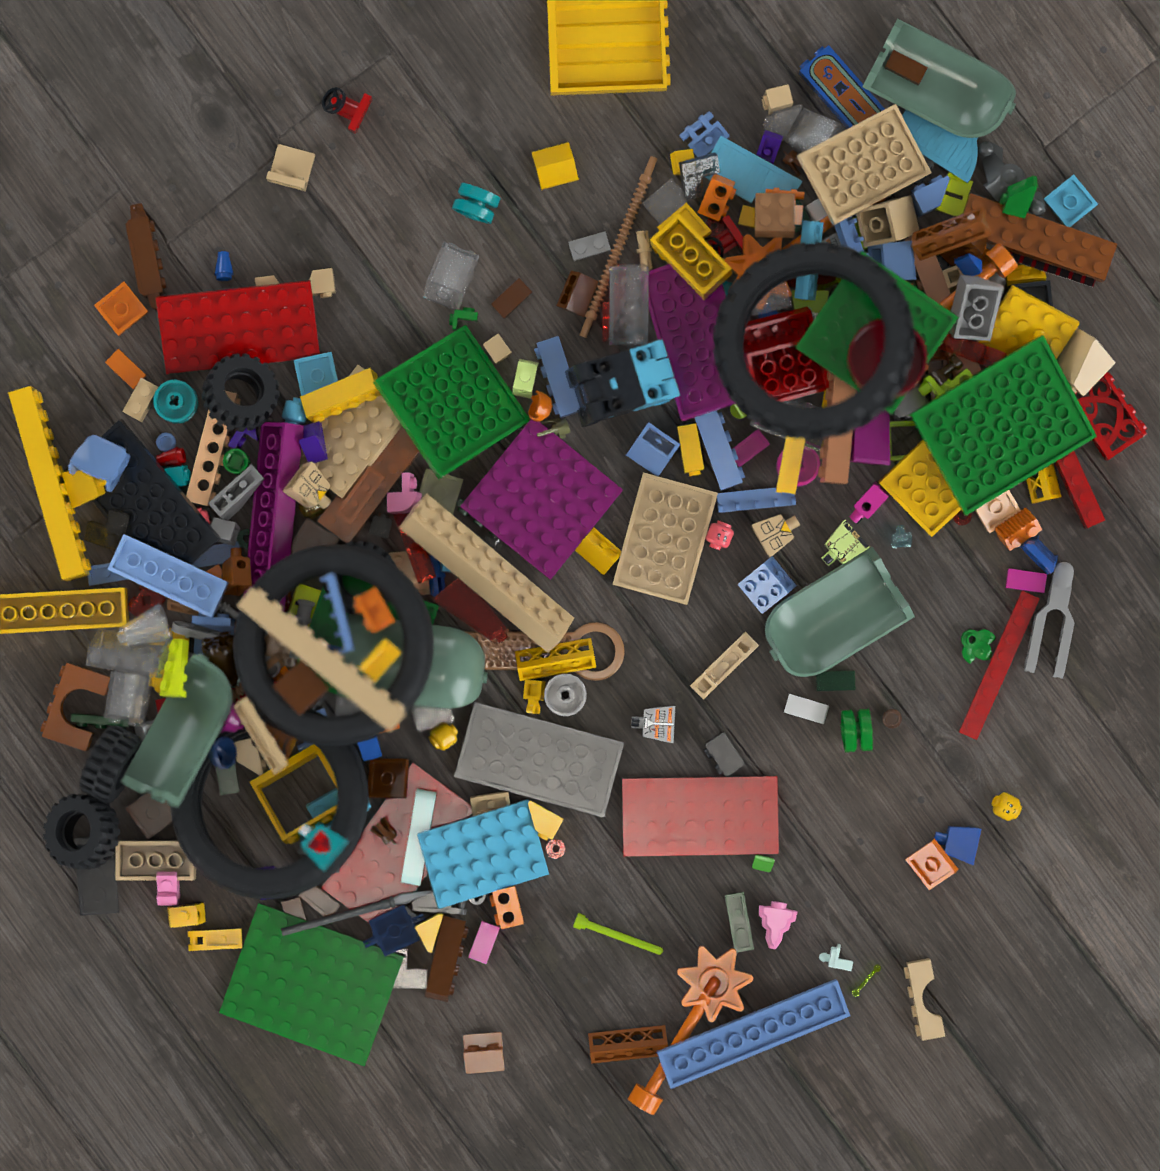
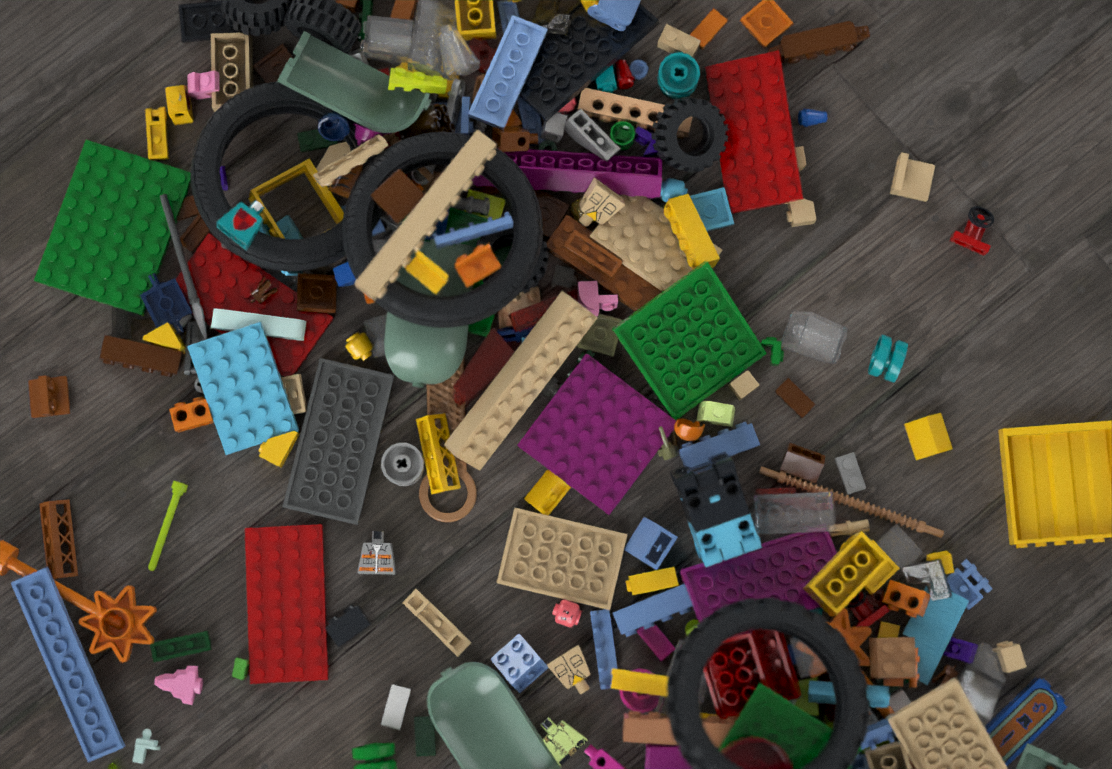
camera: 90 degrees right, 5 degrees down
(313, 443) = (643, 208): dark purple slope -> none
(484, 942) = (157, 393): tile -> none
(534, 692) = (404, 433): yellow plate -> none
(555, 855) = (245, 458): clear red plate -> none

